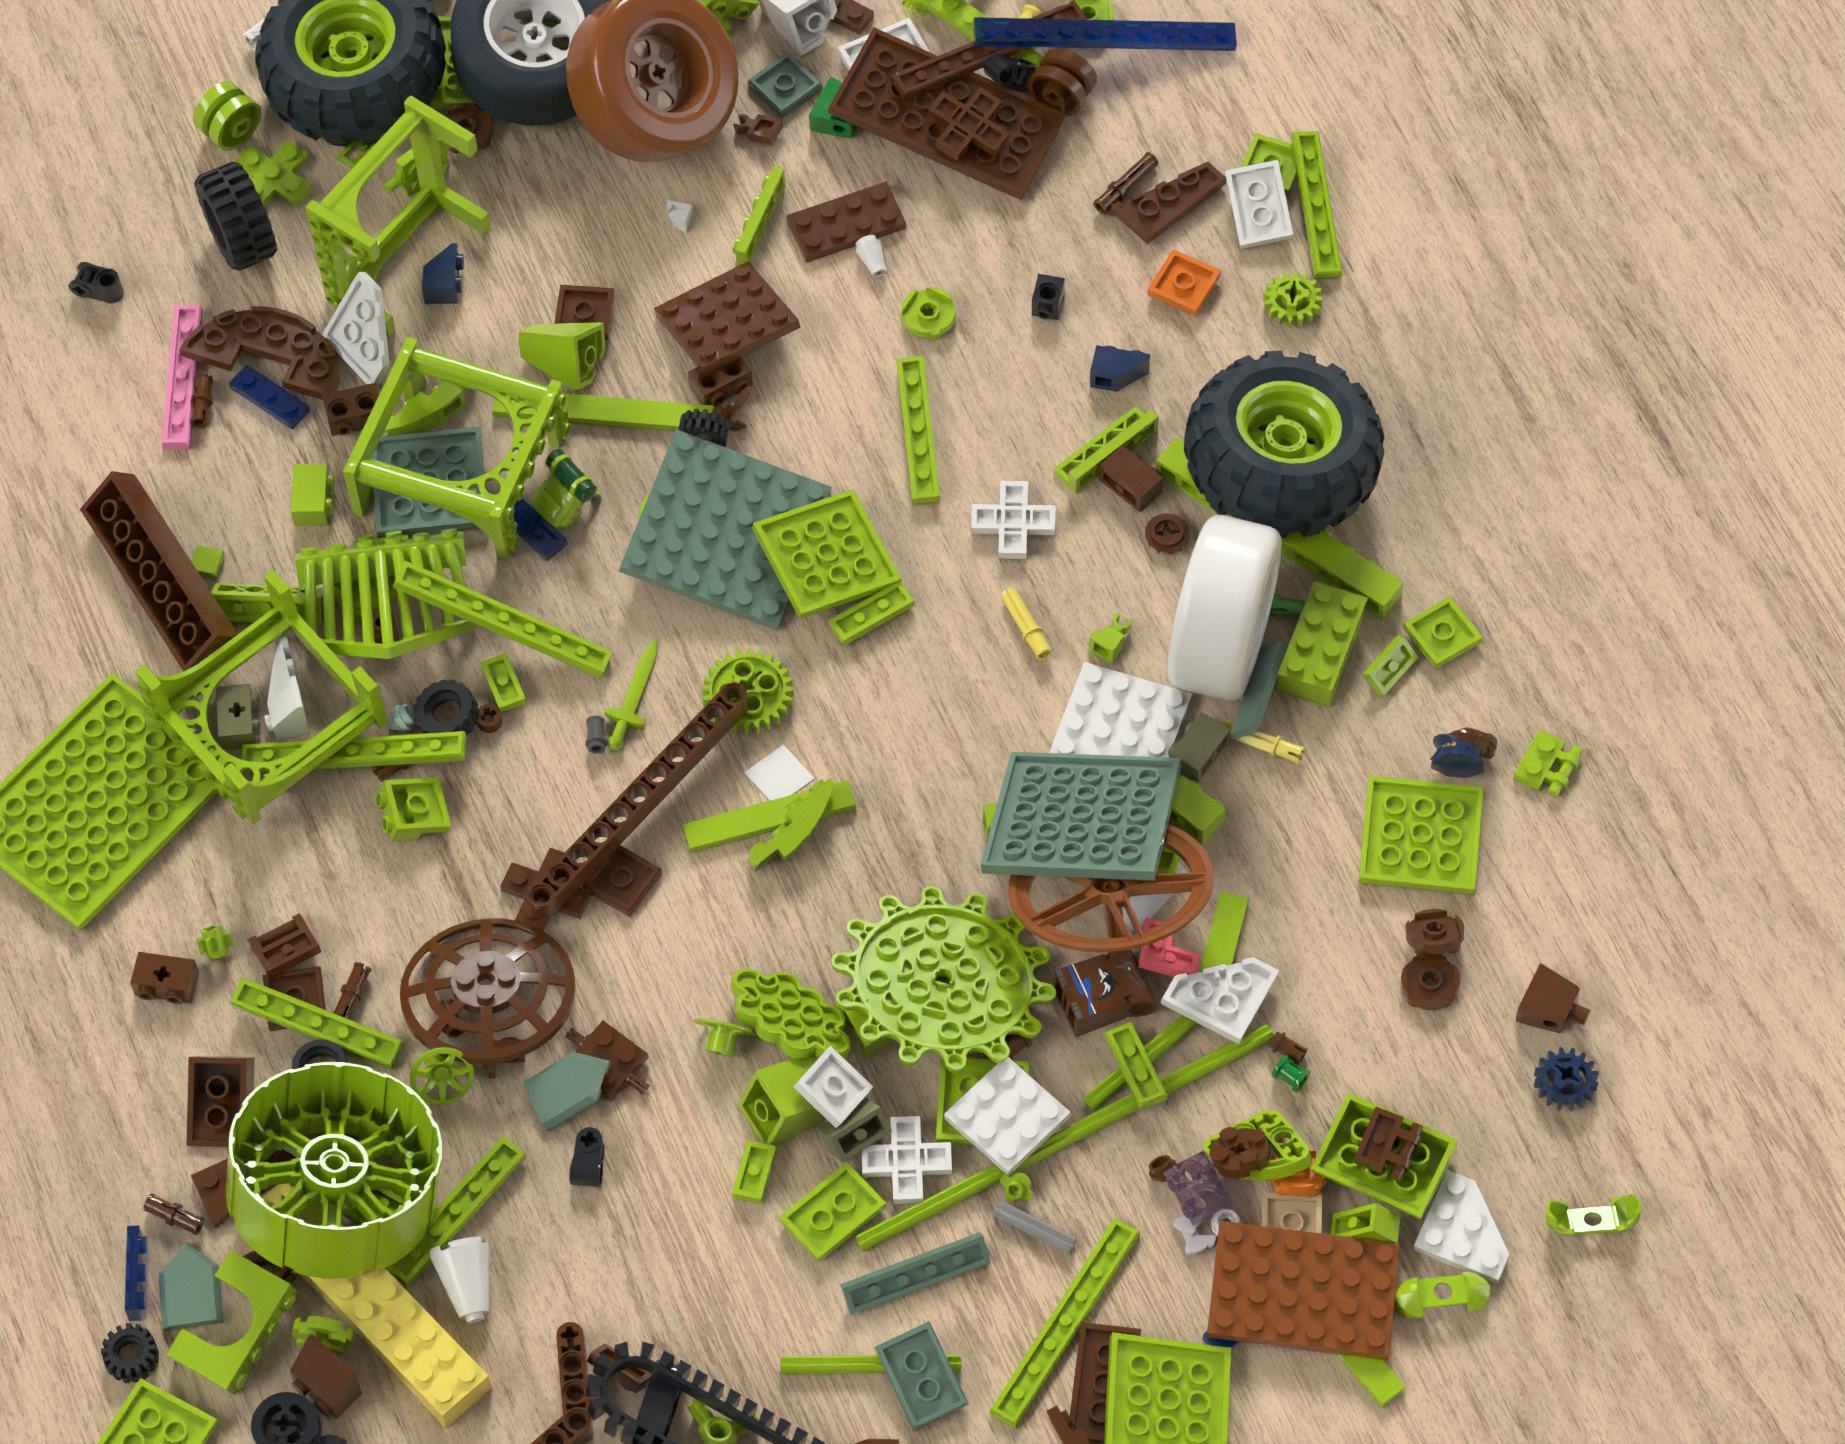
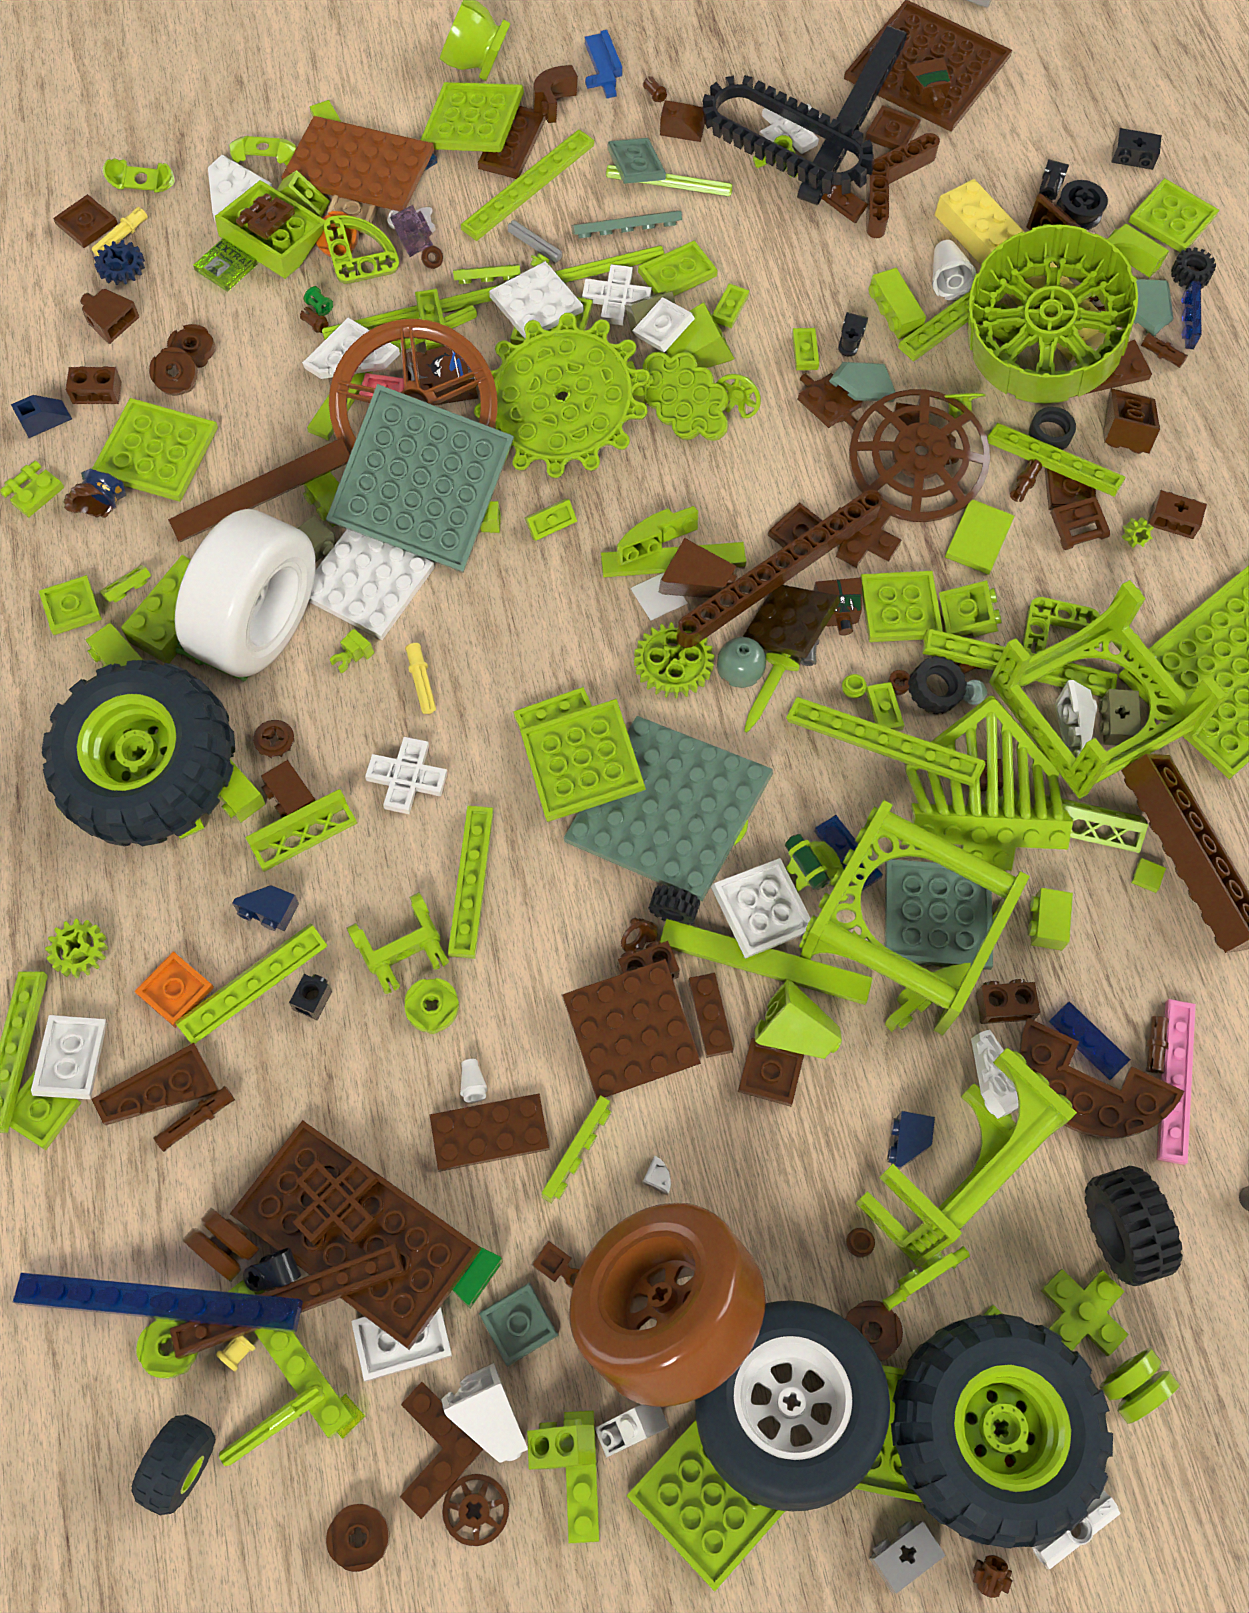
camera: 175 degrees left, 5 degrees up
(324, 822) = (1044, 619): none -> lime beam
(405, 912) = (979, 536): none -> lime tile
(483, 192) = (860, 1242): none -> reddish brown plate
(494, 803) = (900, 605): none -> lime plate
(534, 1214) = (896, 302): none -> lime brick
(539, 703) = (854, 686): none -> lime plate
(566, 791) = (850, 604): none -> reddish brown torso
(612, 446) = (762, 907): none -> white plate
(617, 745) = (792, 620): none -> dark brown plate
(647, 1125) = (805, 349): none -> lime plate
(651, 355) = (710, 1015): none -> reddish brown plate
(670, 706) = (741, 662): none -> sand green cylinder
(736, 775) = (696, 572): none -> reddish brown slope
(930, 826) = (550, 519): none -> lime plate
(987, 342) = (380, 960): none -> lime connector
(1085, 1157) = (486, 274): none -> lime plate
(1109, 298) = (251, 984): none -> lime plate
(1253, 1149) = (386, 232): reddish brown plate -> none
(1268, 783) = (261, 489): none -> reddish brown tile
(1435, 1106) = (225, 264): none -> clear neon green tile
(1524, 893) = (93, 385): none -> reddish brown brick
(1571, 845) = (40, 414): none -> dark blue slope
(1581, 1138) = (126, 226): none -> light yellow axle
(1637, 1136) = (85, 221): none -> reddish brown plate

